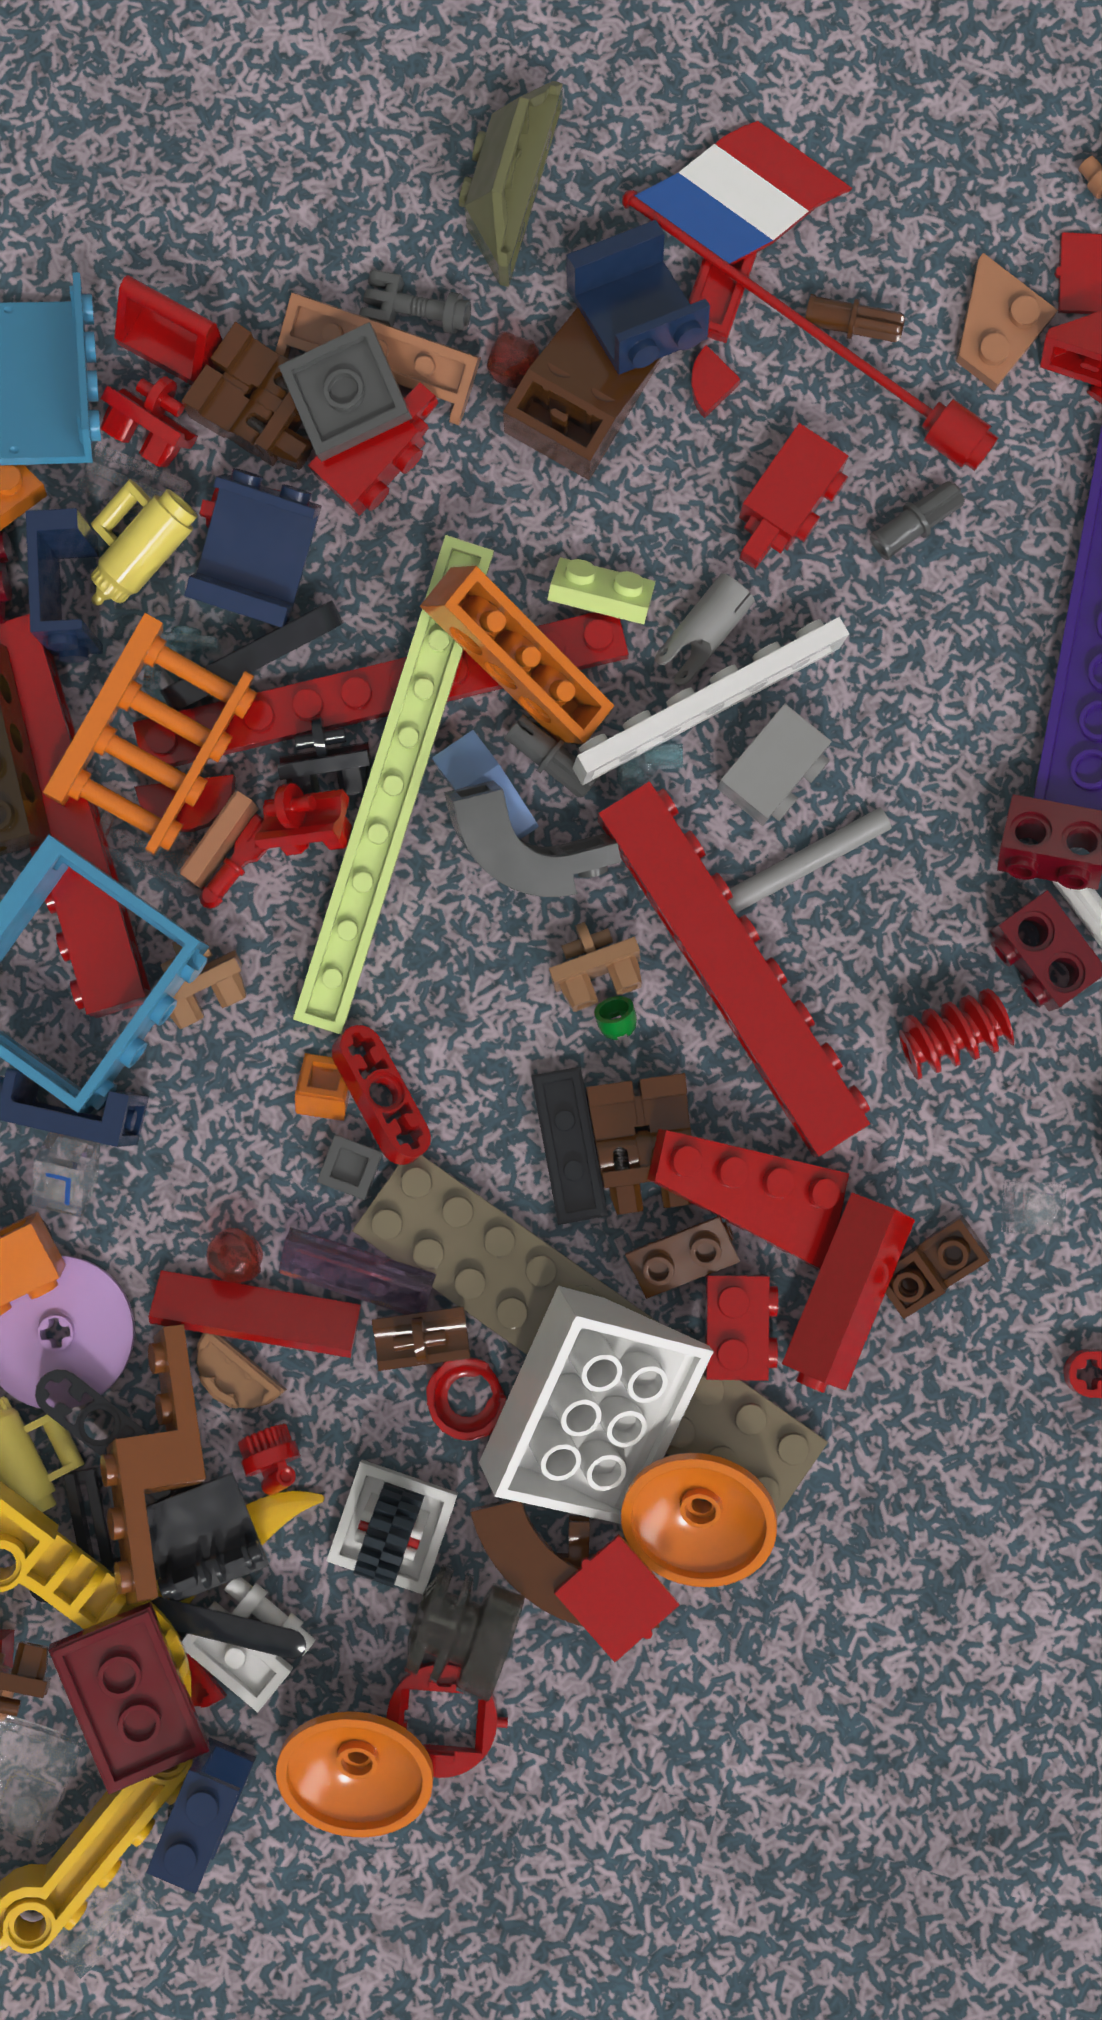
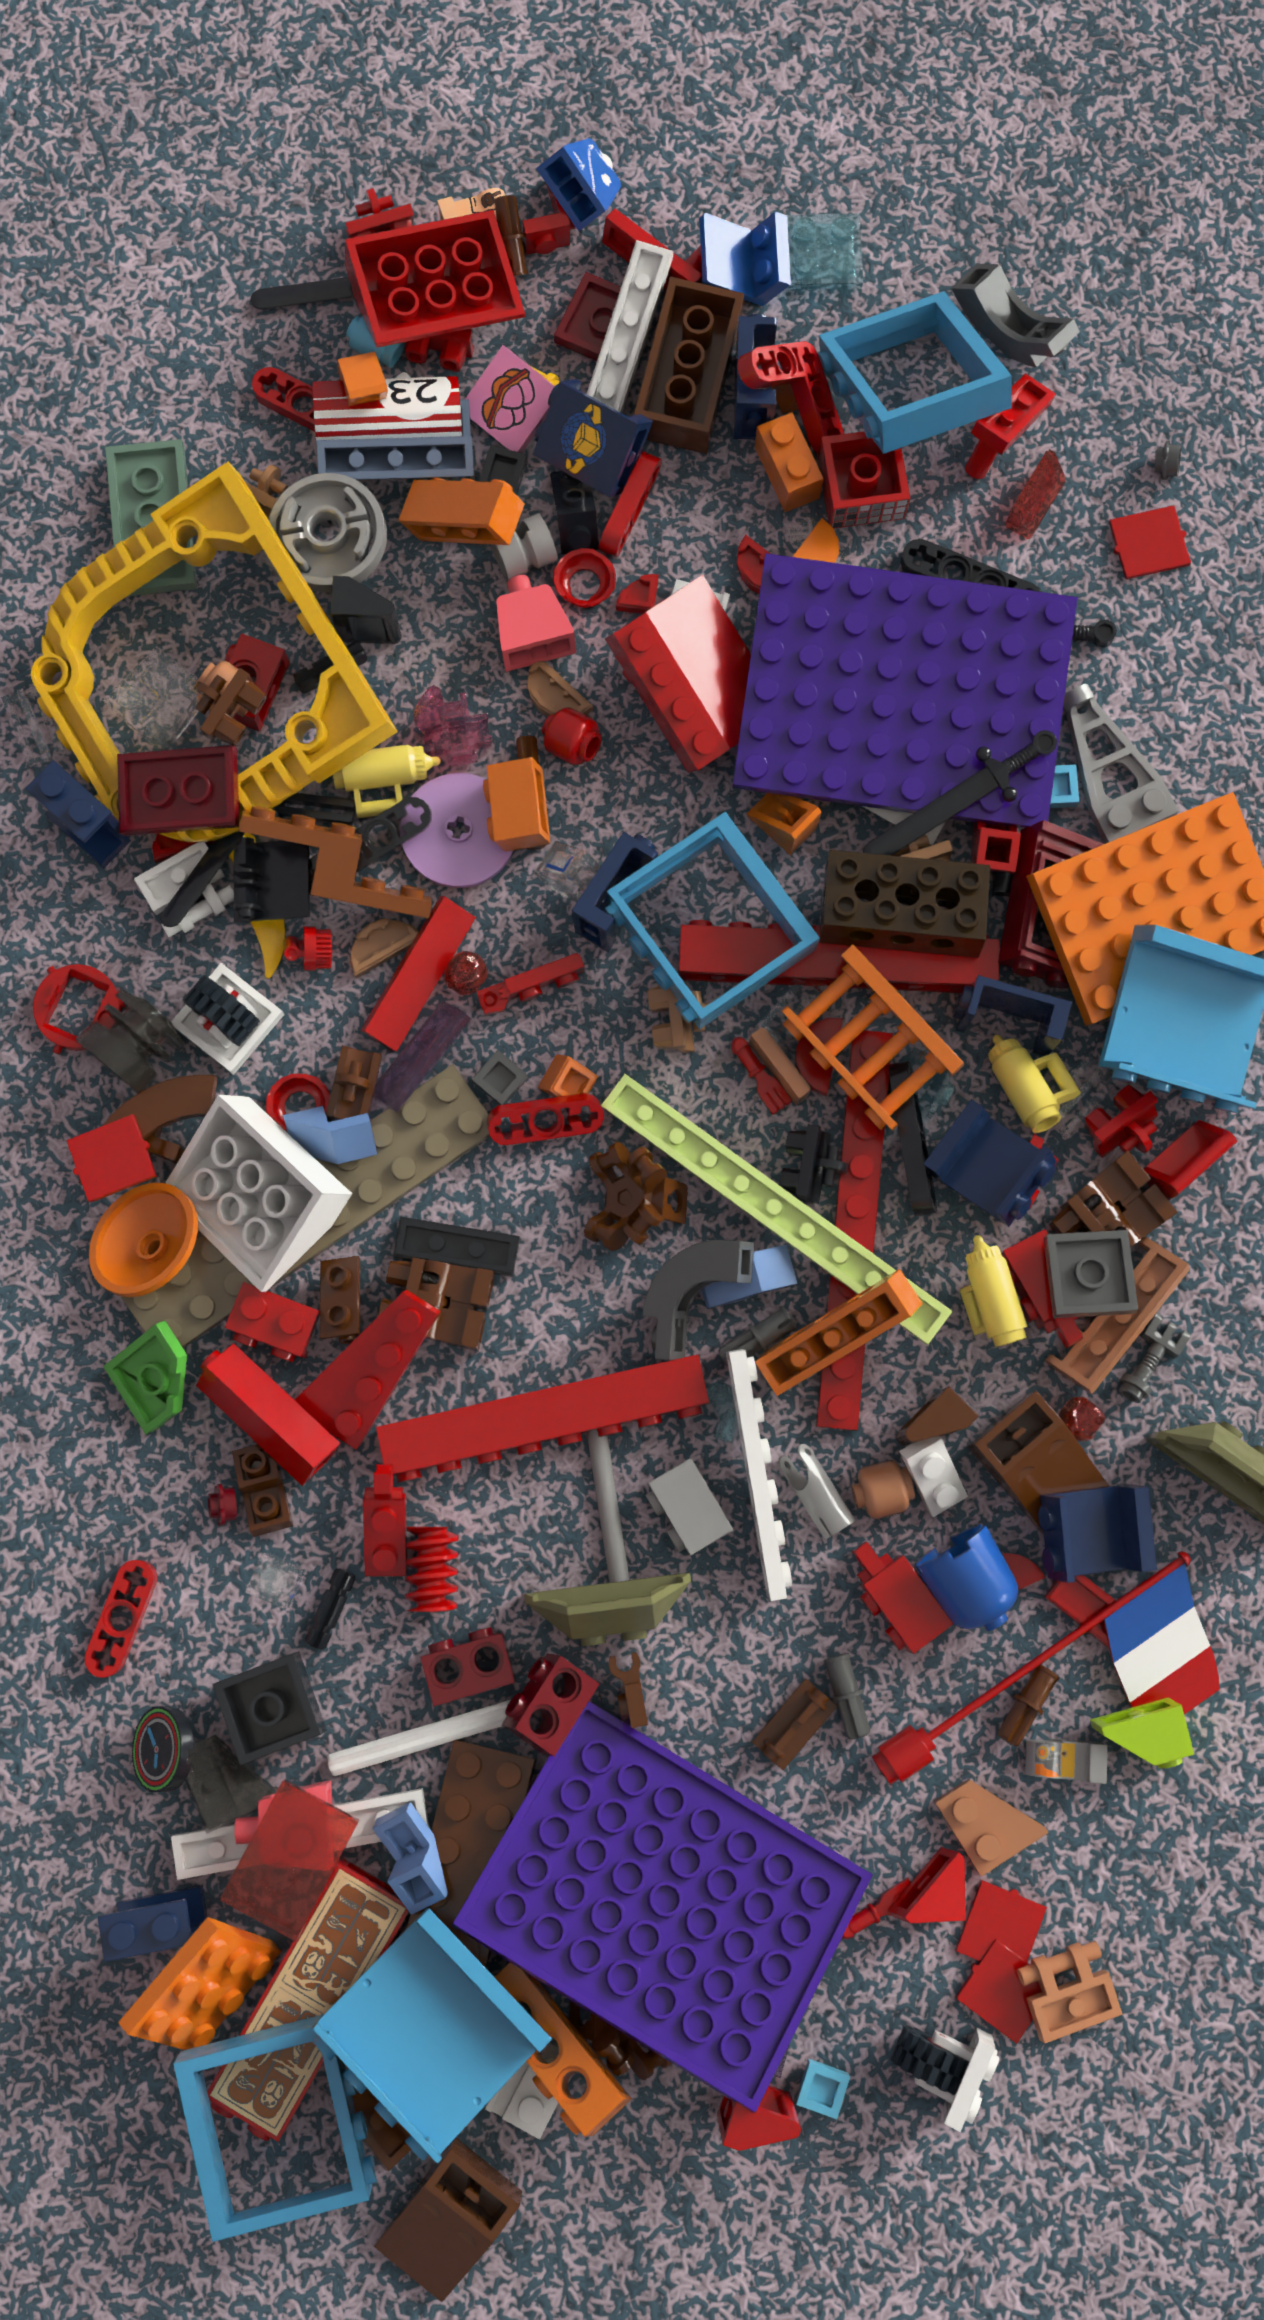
camera: 105 degrees right, 5 degrees down
(224, 1174) = (529, 983): none -> red hinge
(300, 819) = (770, 1132): red hips -> none
(354, 1774) = (62, 930): orange dish -> none
(410, 500) = (992, 1297): none -> light yellow piece
(439, 957) = (634, 1198): none -> reddish brown piece
(500, 1335) = (332, 1141): none -> medium blue slope
(575, 516) = (939, 1416): none -> reddish brown tile
(576, 974) = (580, 1294): medium nougat hips -> none
(601, 590) = (874, 1422): yellowish green plate -> none
(612, 1008) = (548, 1315): green hinge -> none
(637, 501) = (933, 1474): none -> white plate
(673, 555) = (883, 1489): none -> nougat head
(740, 421) = (971, 1580): none -> blue cylinder
(834, 176) = (1150, 1731): none -> lime slope
(855, 1447) = (151, 1376): none -> bright green plate
(897, 255) = (1067, 1760): none -> light grey leg
(922, 815) = (610, 1607): none -> olive wedge
(926, 1105) = (384, 1526): none -> red hinge
(970, 568) = (794, 1724): none -> reddish brown hinge
(970, 1305) = (222, 1504): none -> dark red plate
(1015, 753) = (631, 1702): none -> reddish brown plate
(1039, 1135) = (330, 1608): none -> black axle

